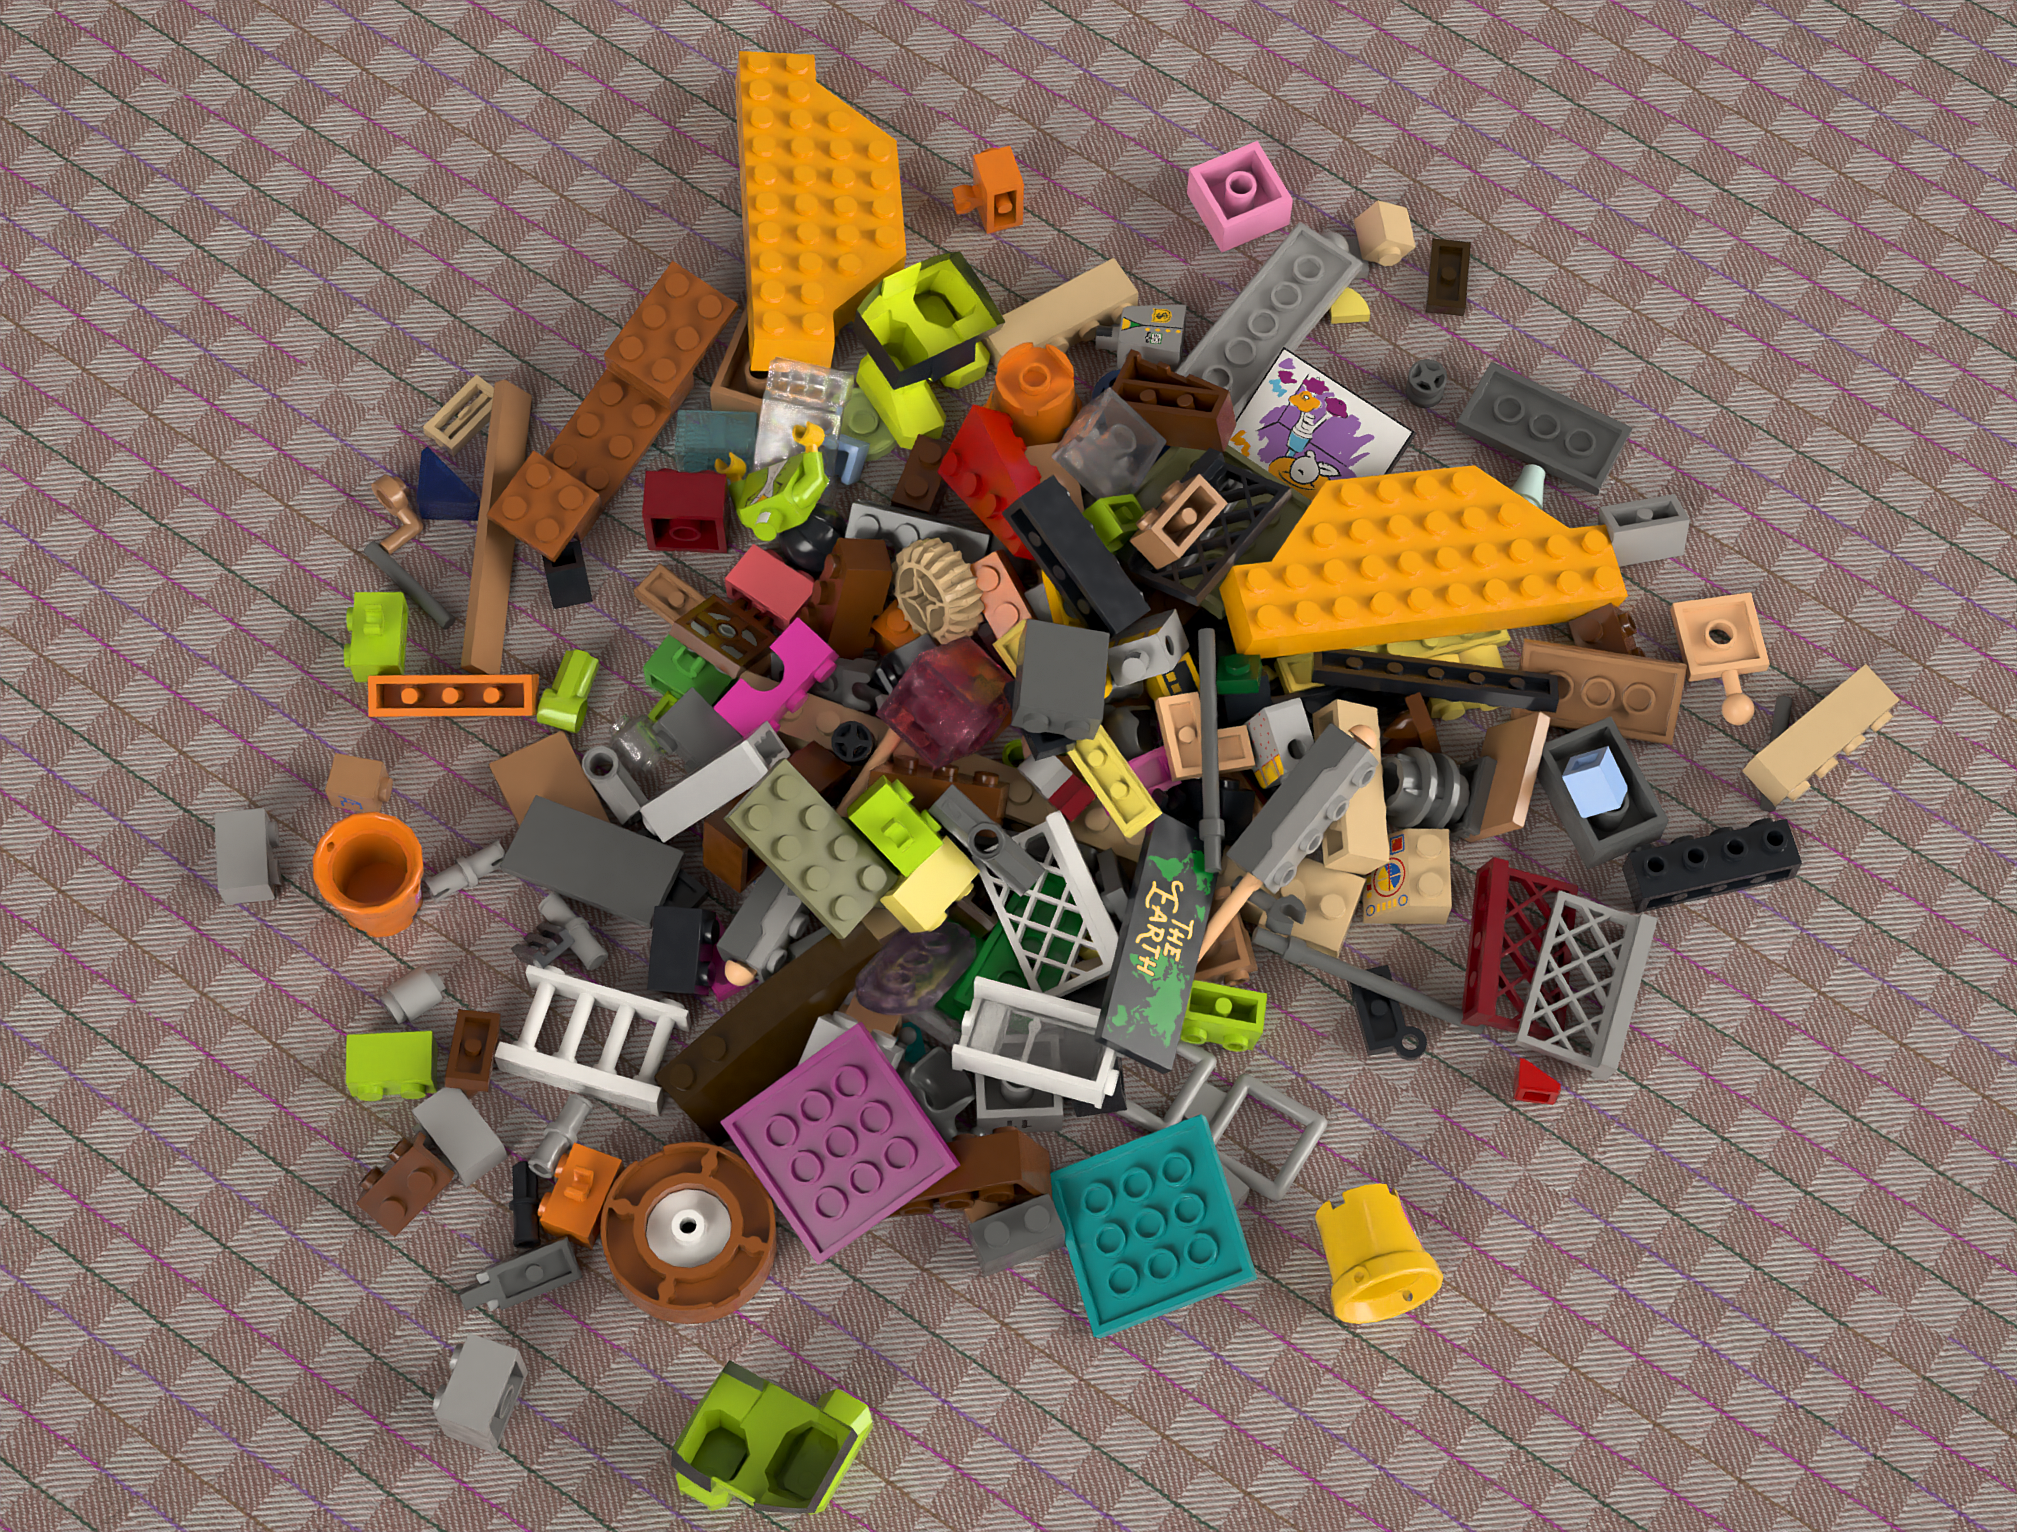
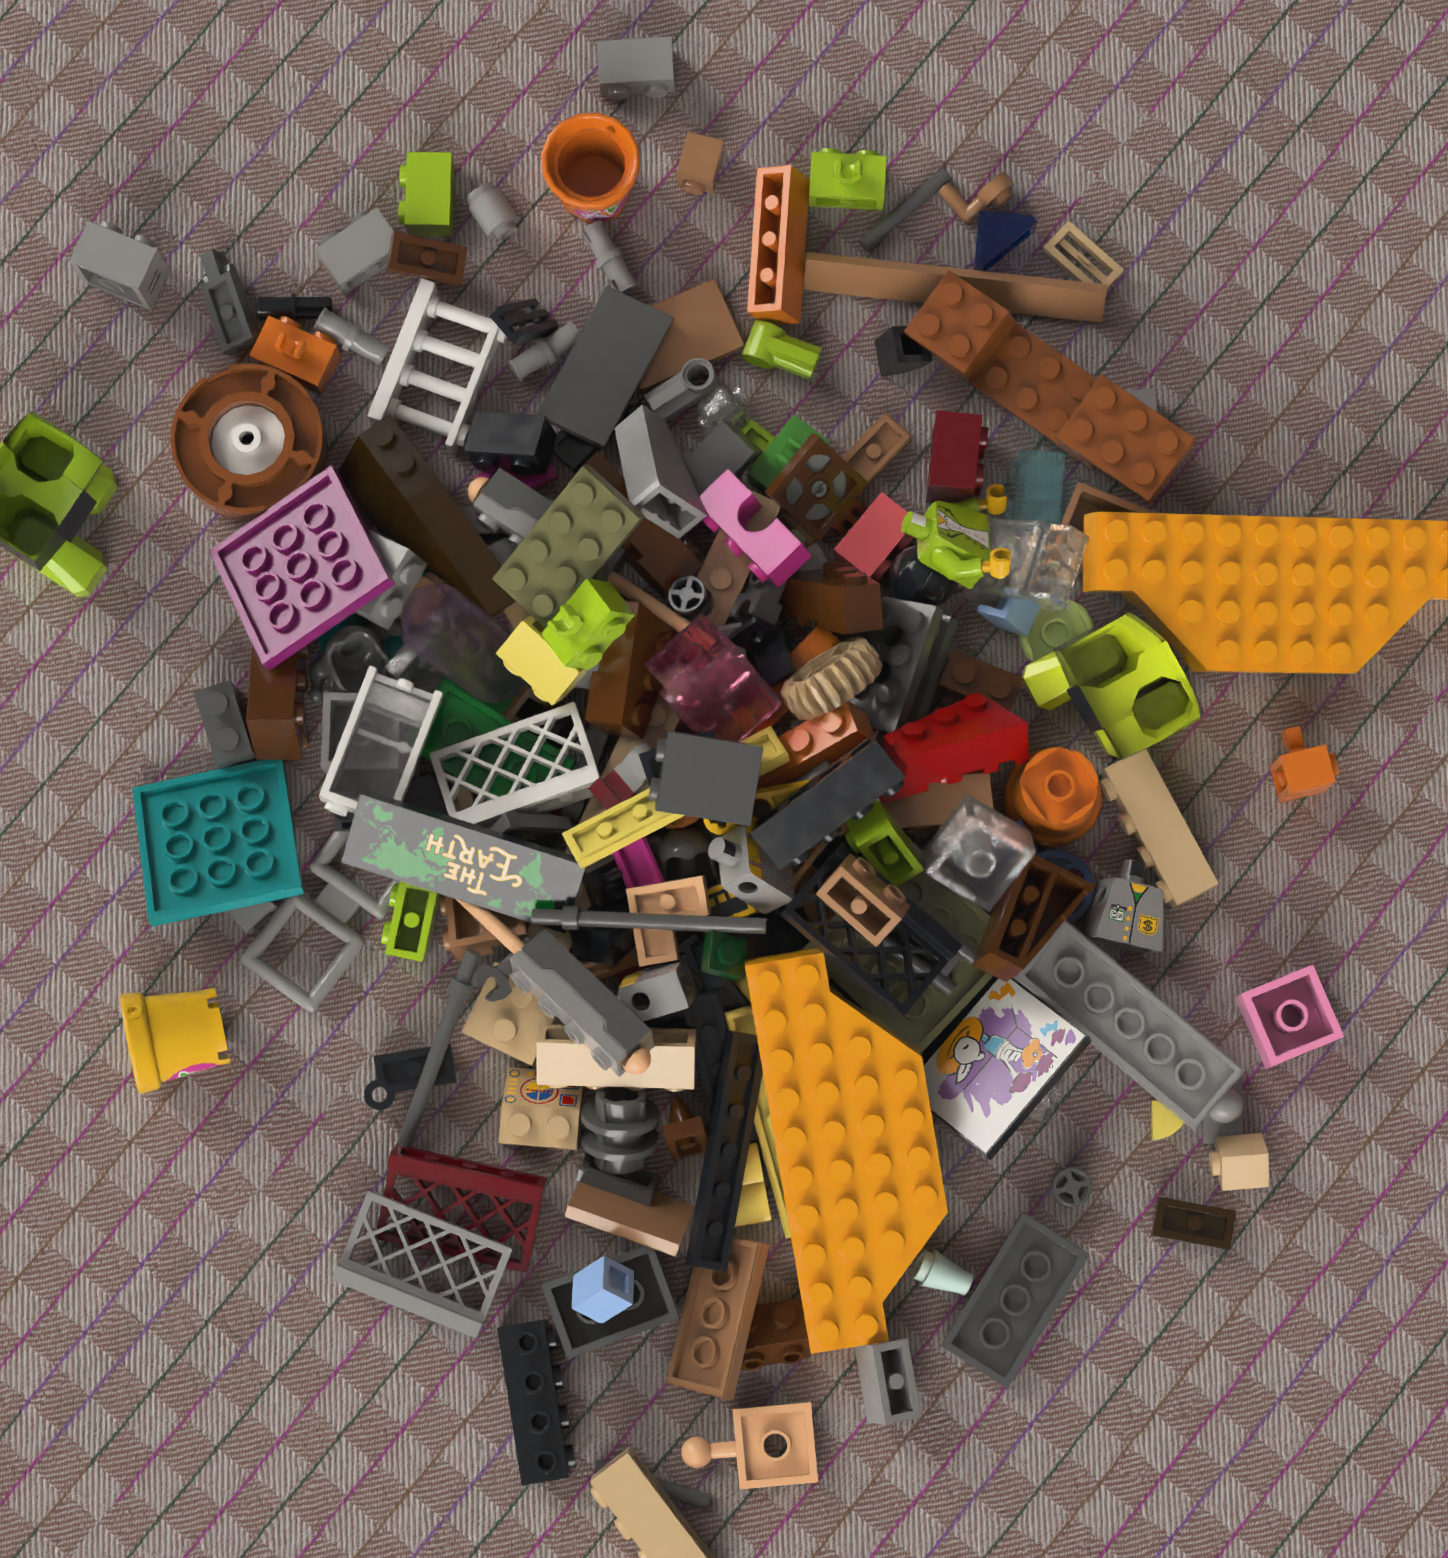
camera: 100 degrees right, 15 degrees up
(403, 1185) = (313, 201): reddish brown bracket -> none
(1007, 860) = (586, 693): dark grey piece -> none
(1534, 1085) = (329, 1204): red slope -> none

